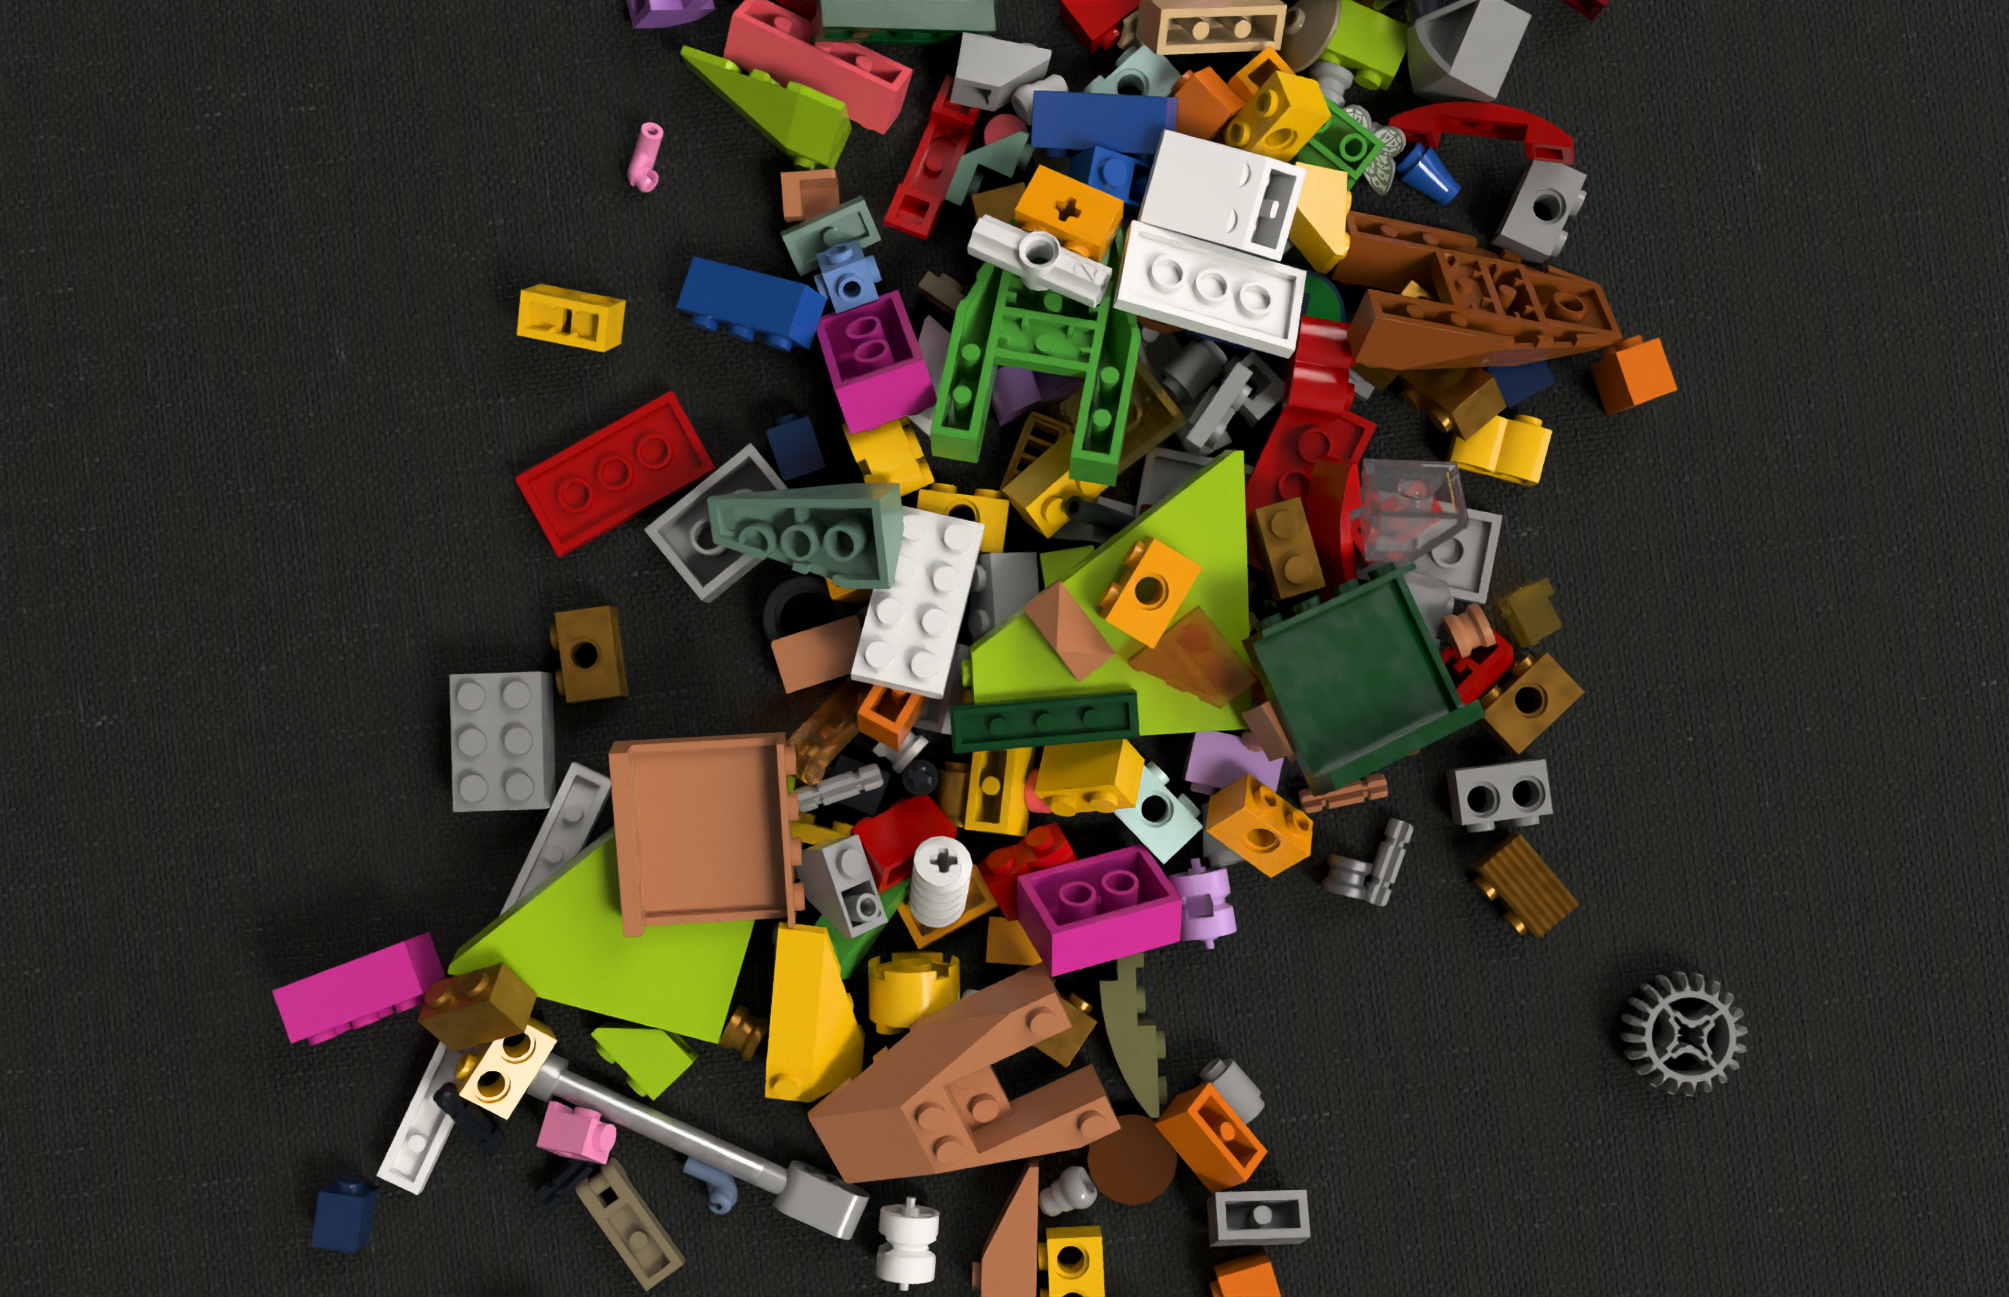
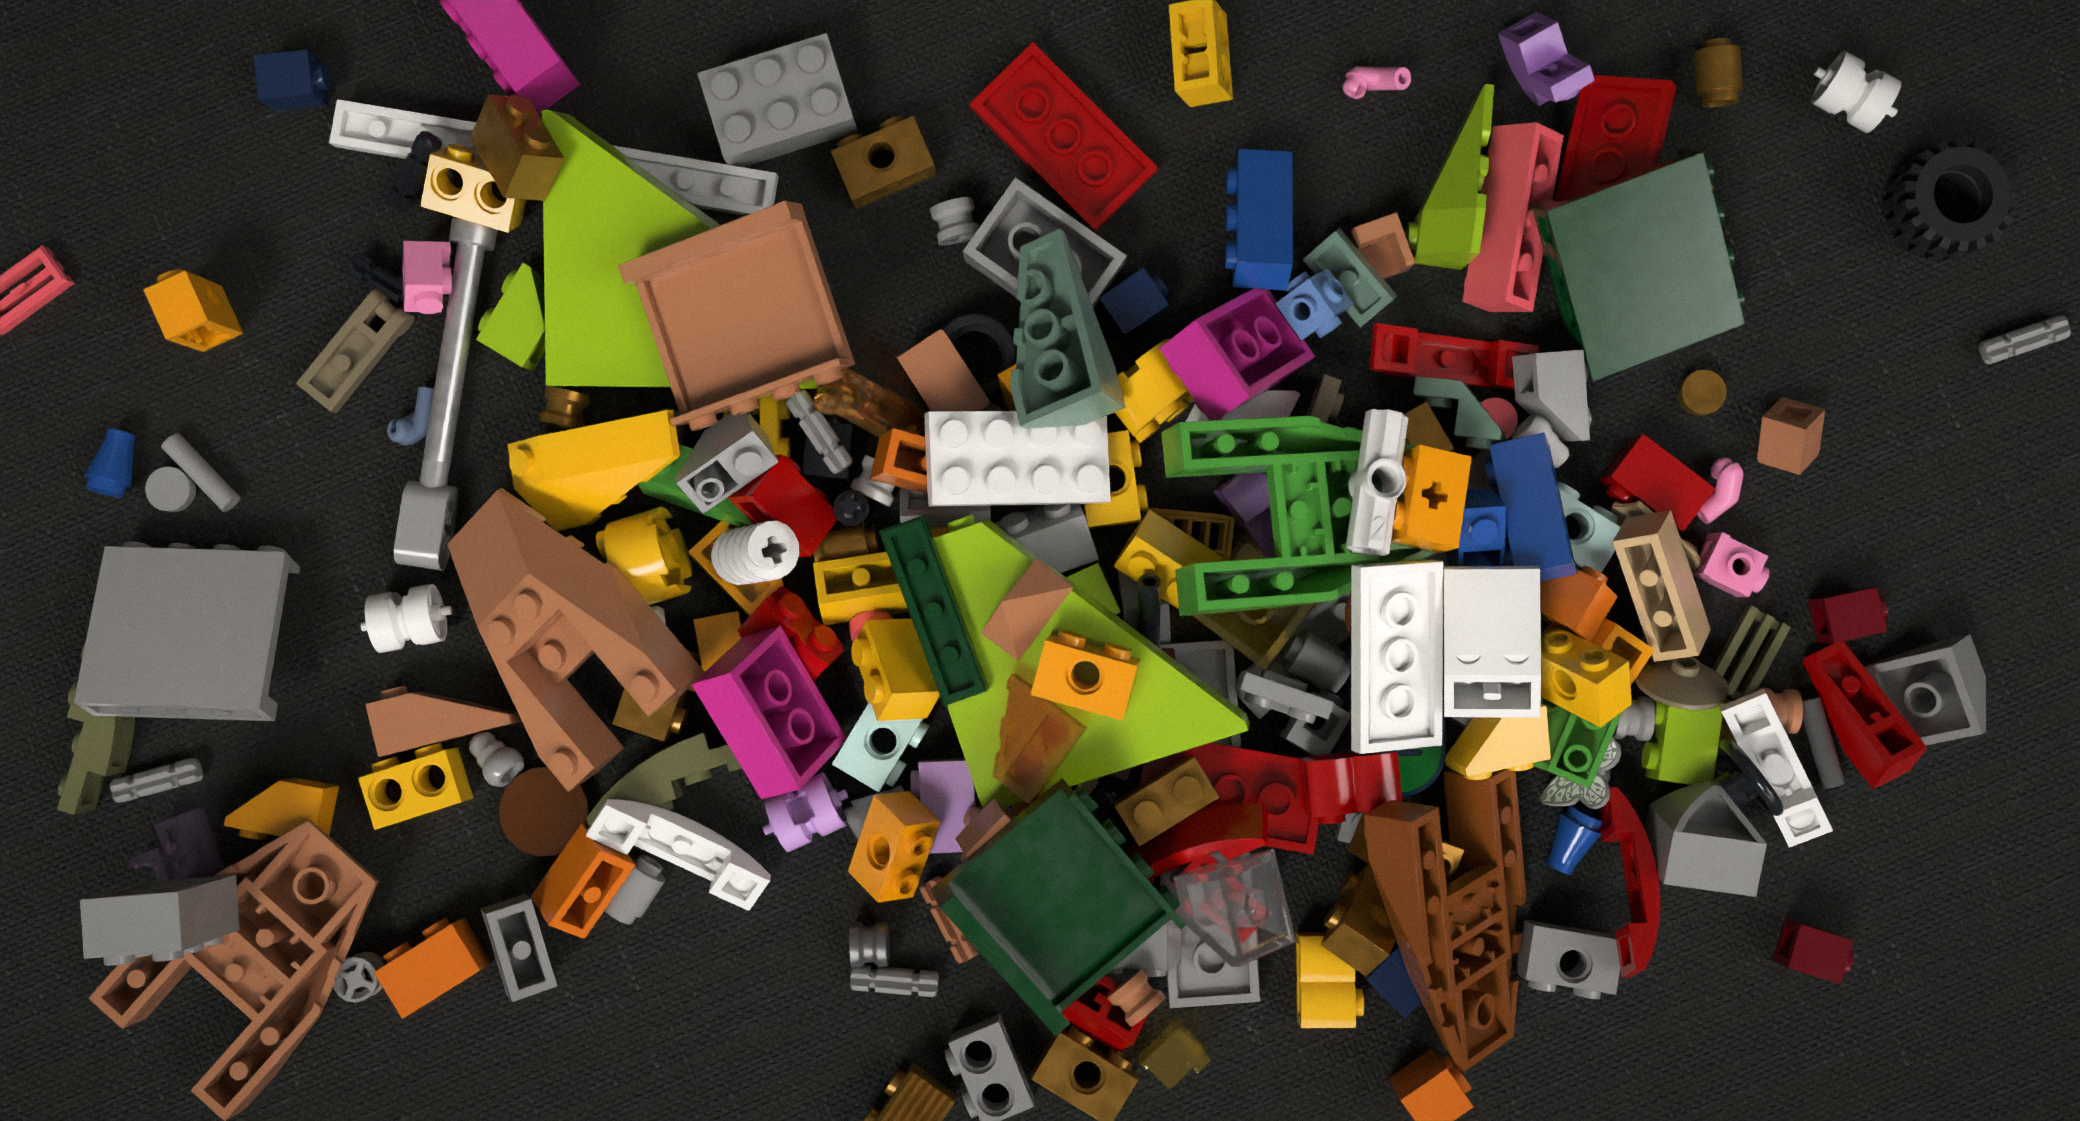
camera: 75 degrees right, 0 degrees up
(668, 601) = (954, 220): none -> light grey wheel
(1201, 1028) = (684, 843): none -> white slope

